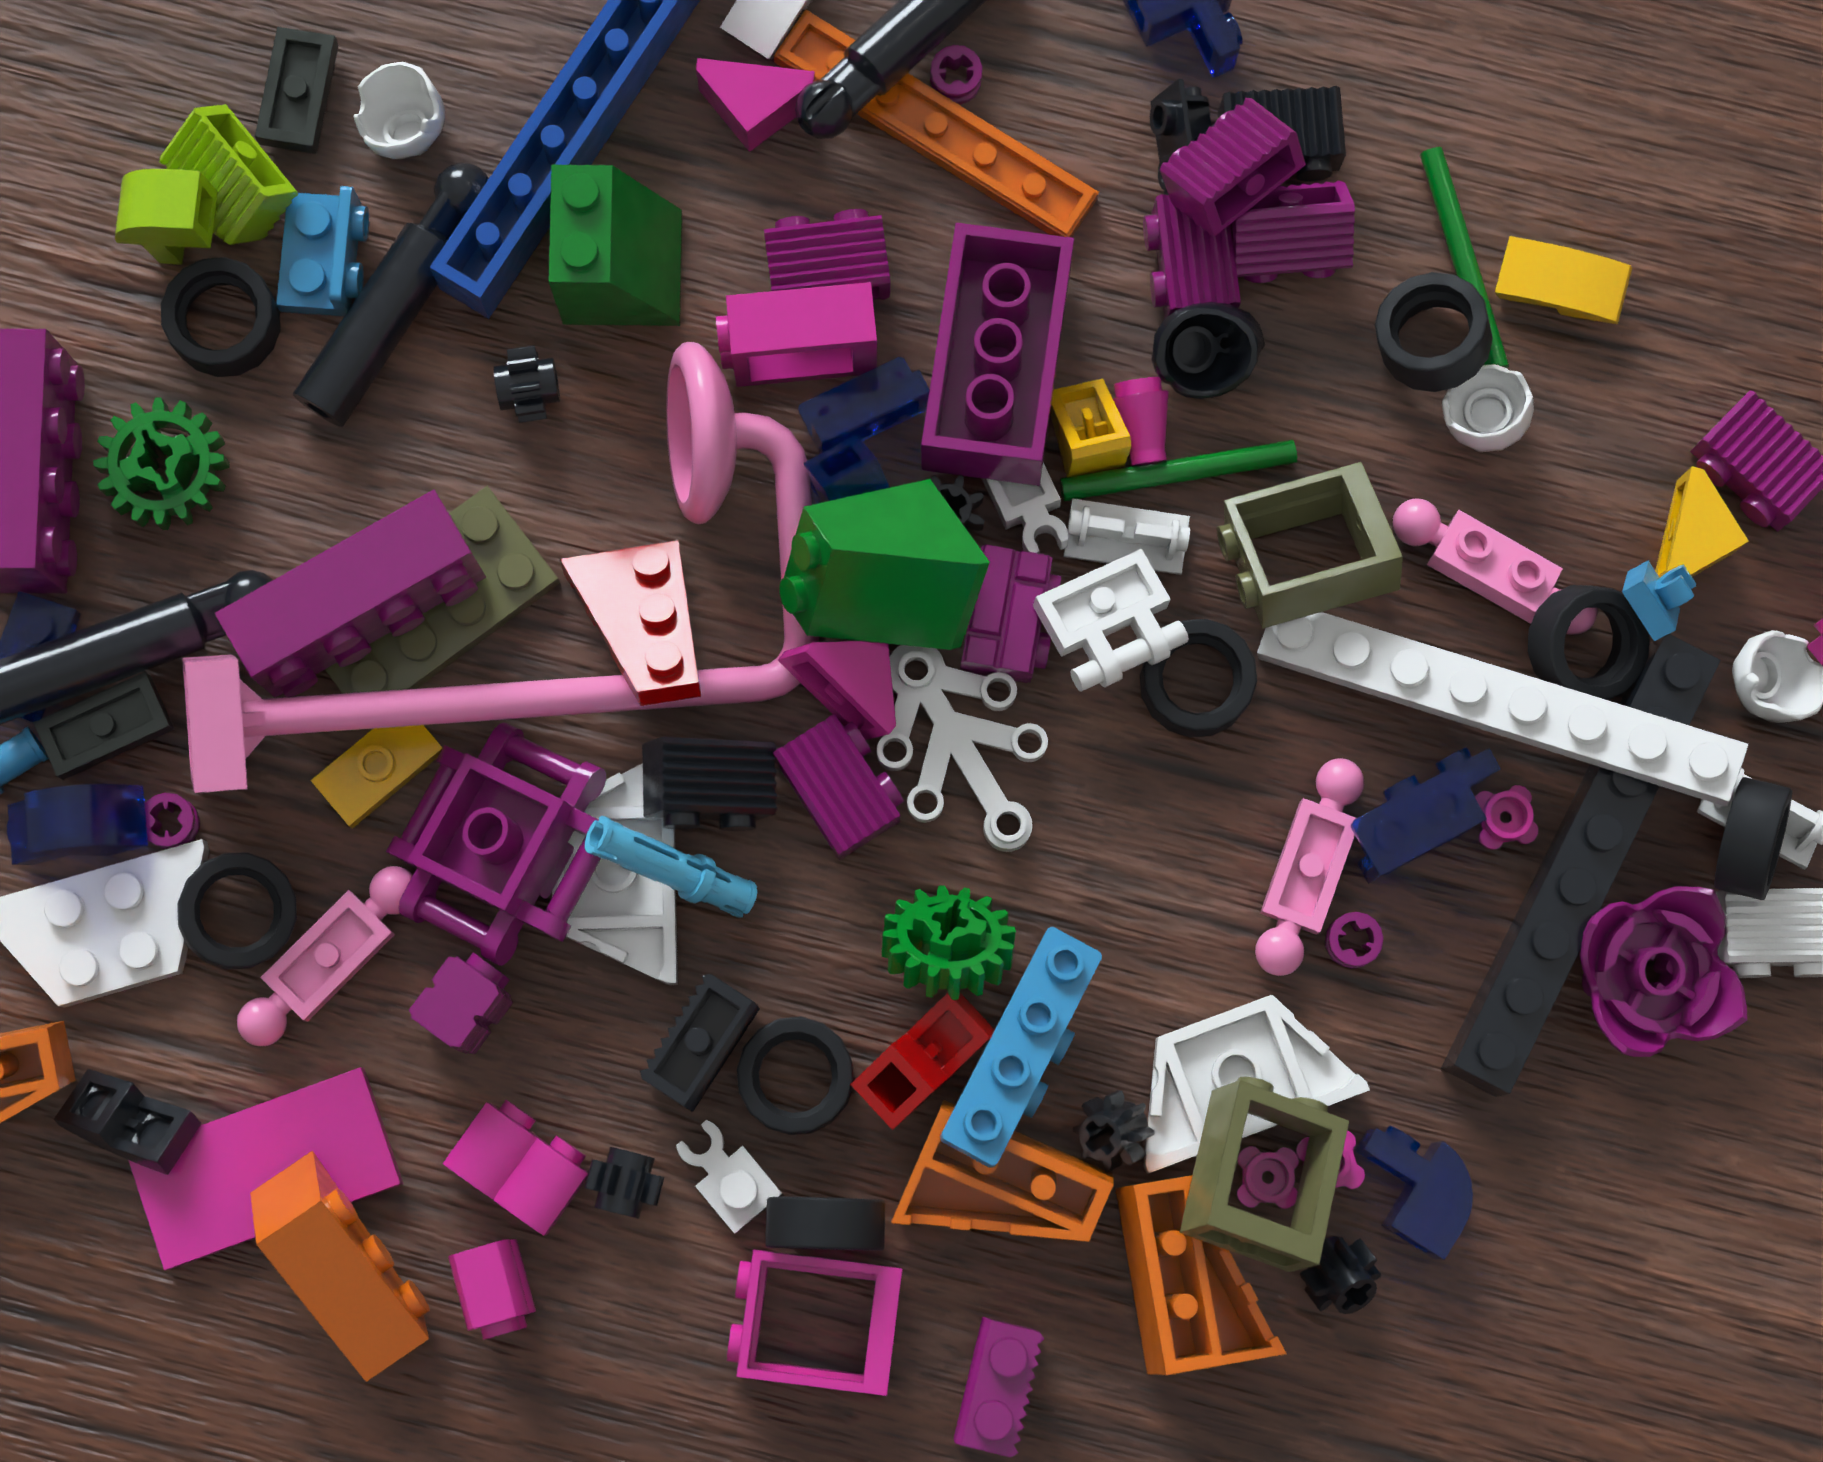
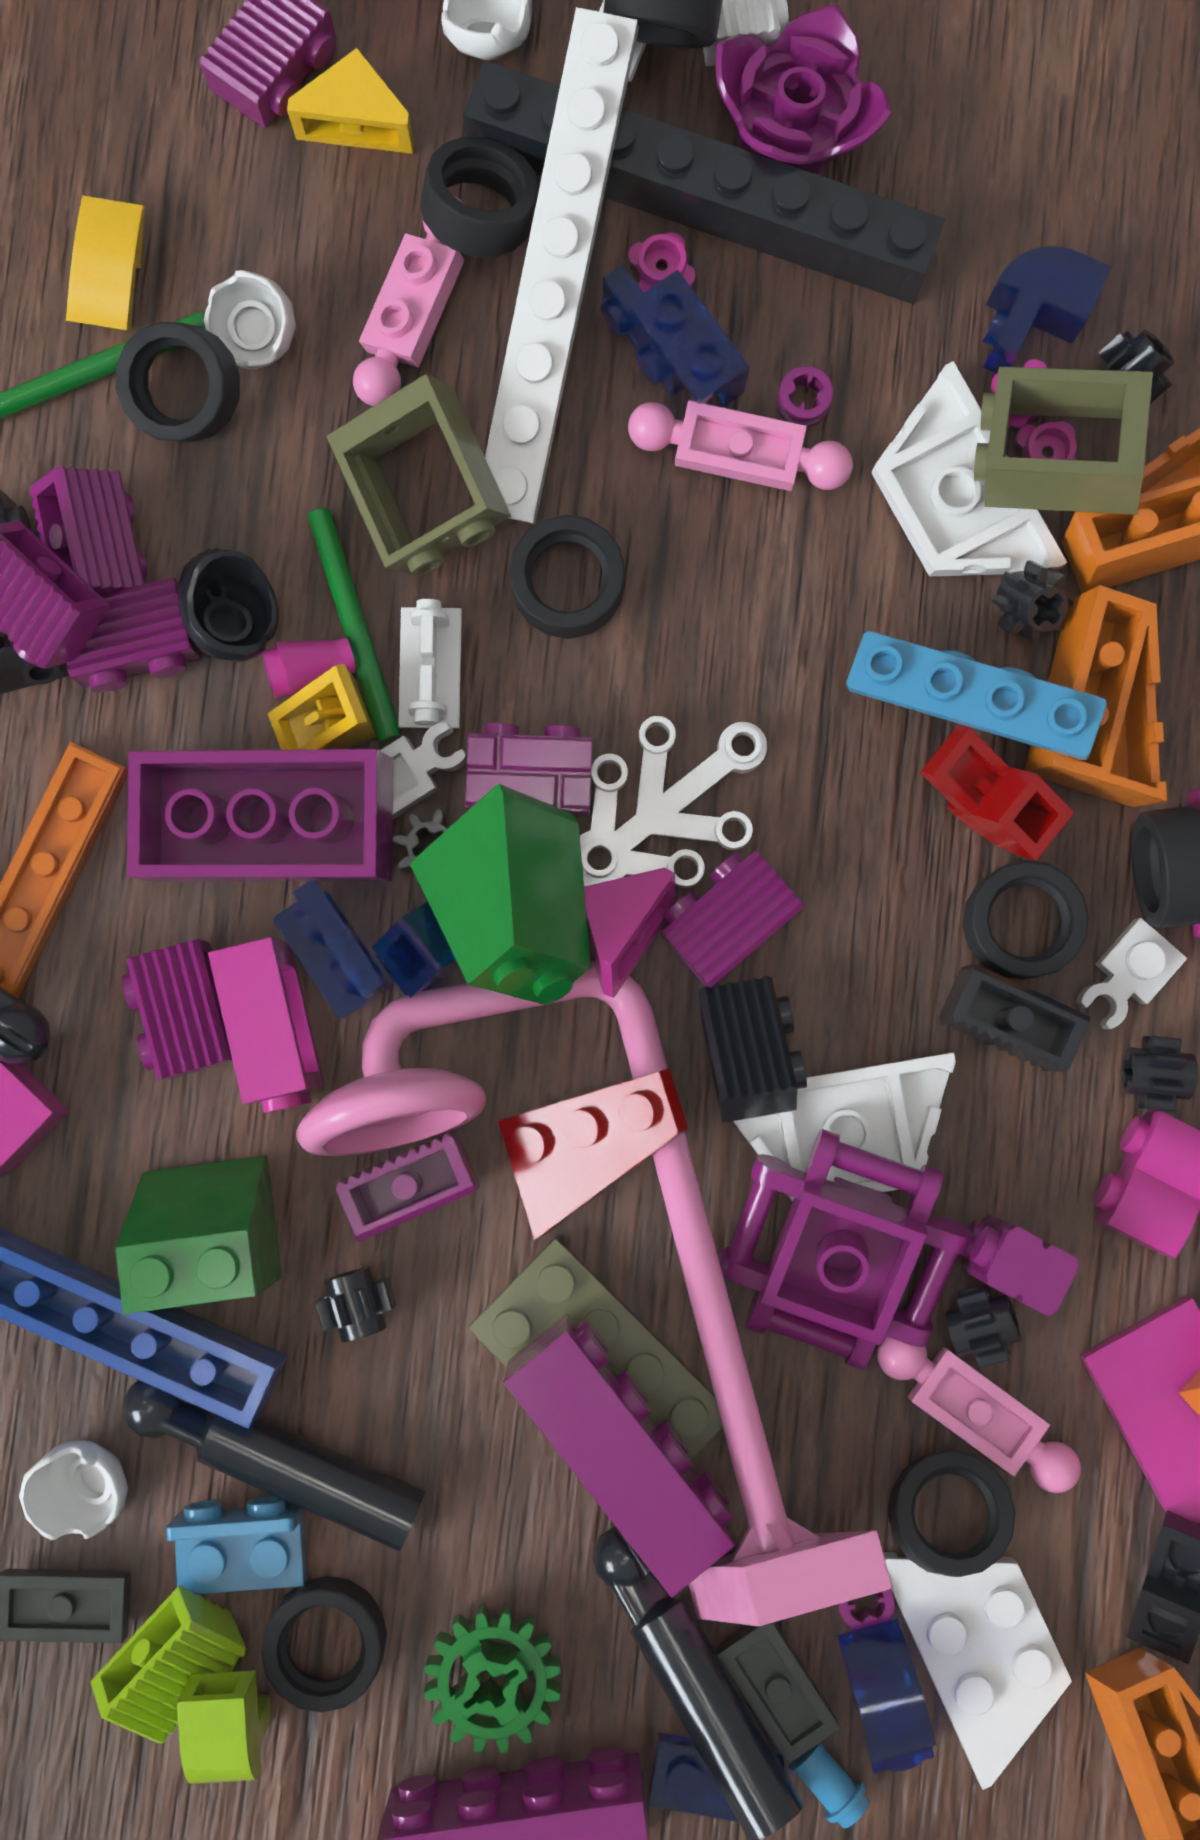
camera: 95 degrees left, 5 degrees up
(375, 769) = (785, 1398): yellow plate -> none
(405, 967) = (983, 1326): none -> black gear
(629, 444) = (406, 1186): none -> magenta brick
(692, 876) = (849, 1051): medium azure pin -> none
(948, 942) = (873, 816): green gear -> none
(1104, 603) = (512, 674): white plate -> none
(1658, 598) = (427, 125): dark azure tile -> none

